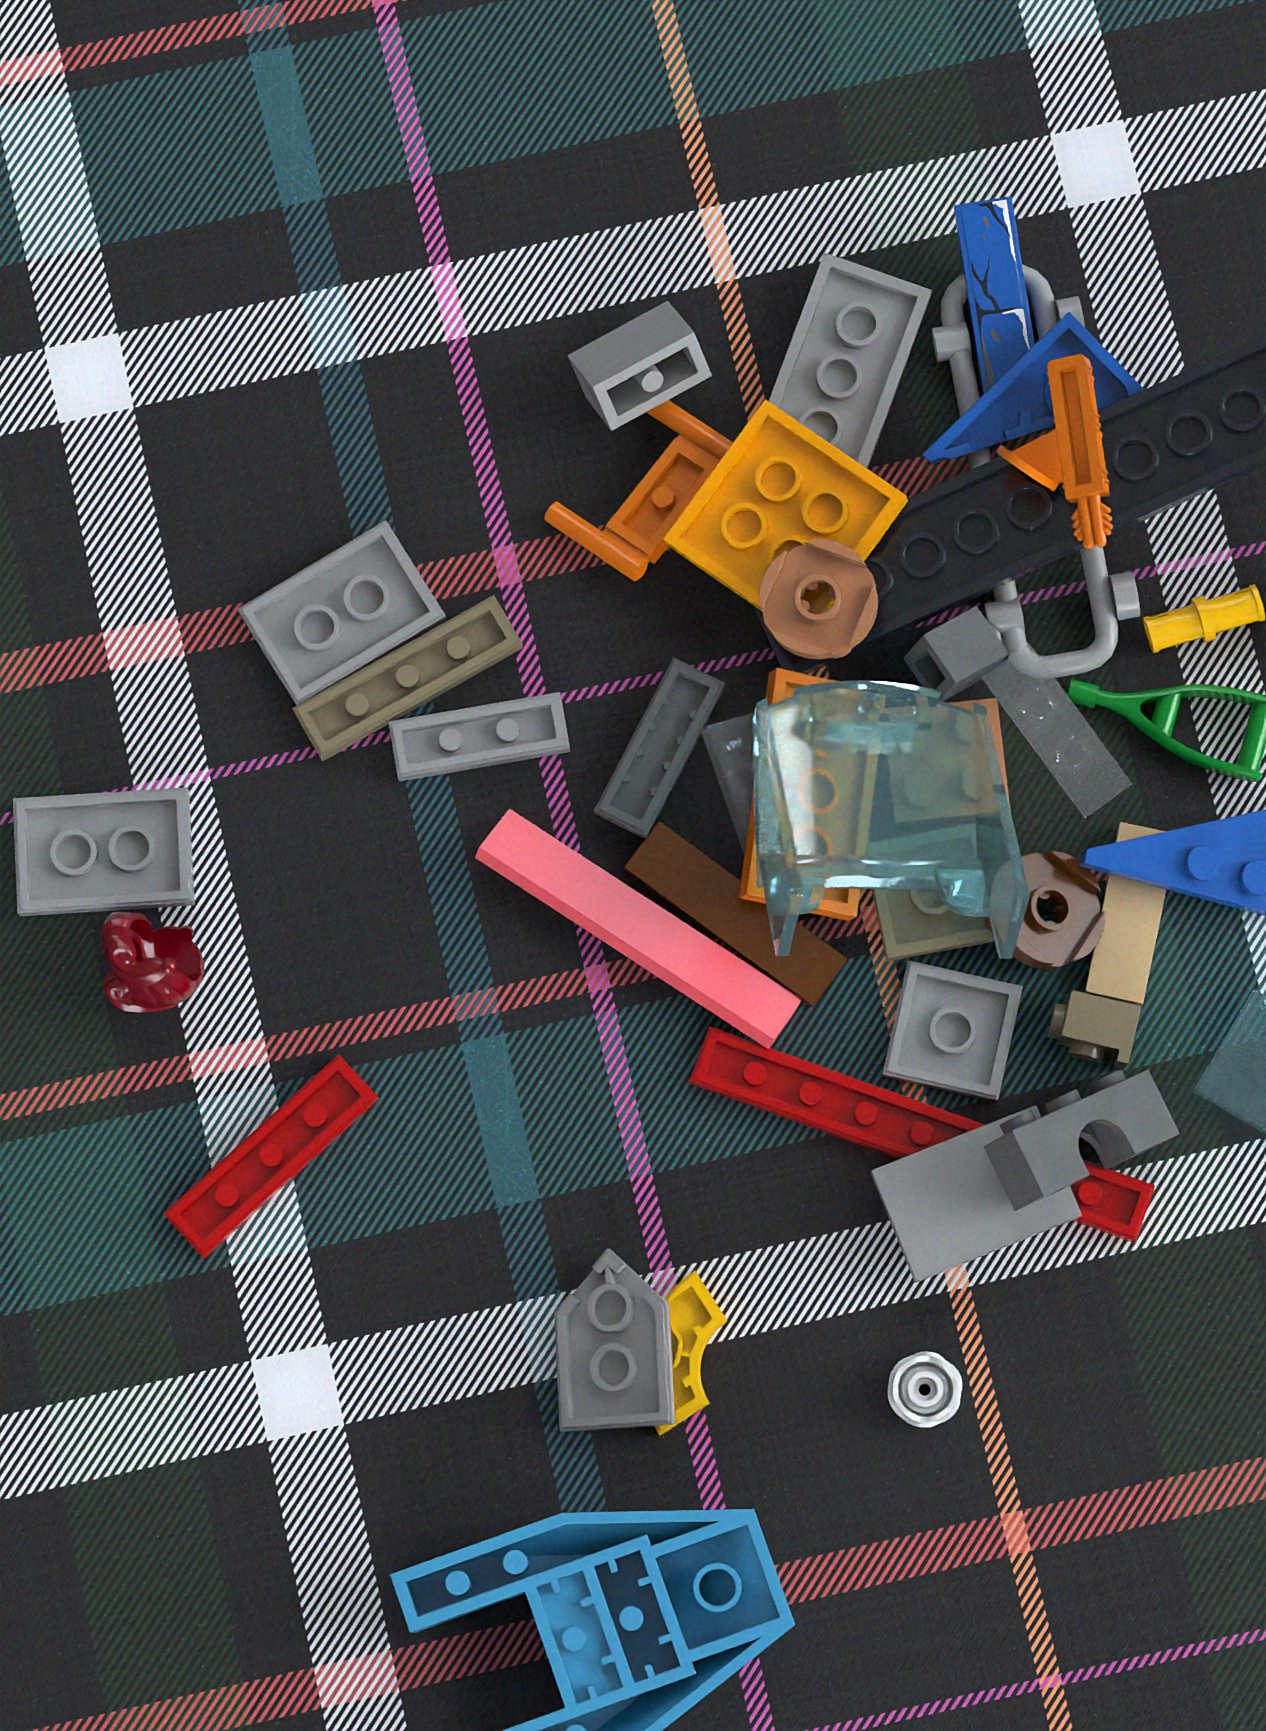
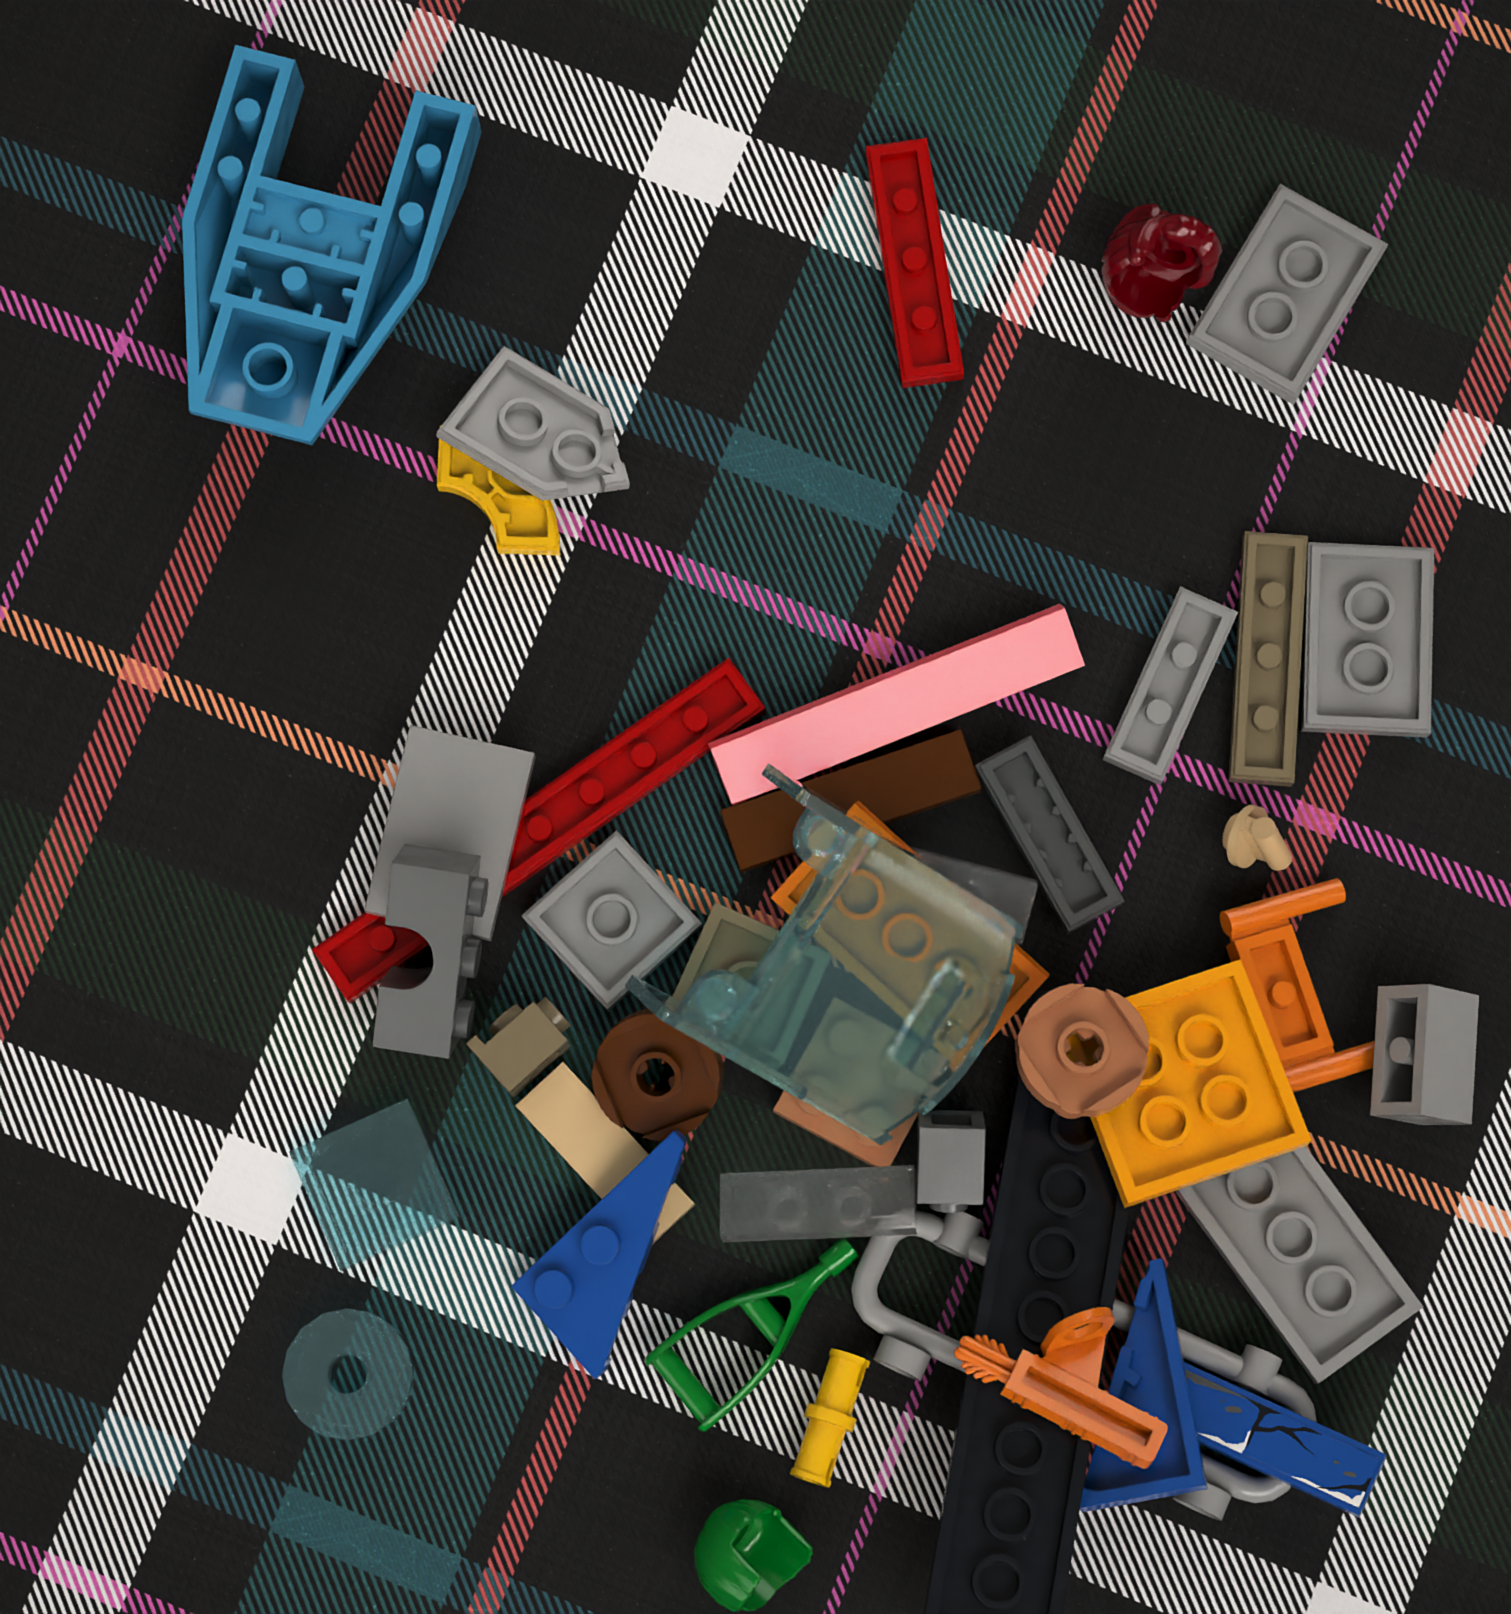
camera: 125 degrees right, 0 degrees up
(558, 601) = (1255, 836): none -> tan plate
(944, 1386) = (312, 655): white plate -> none

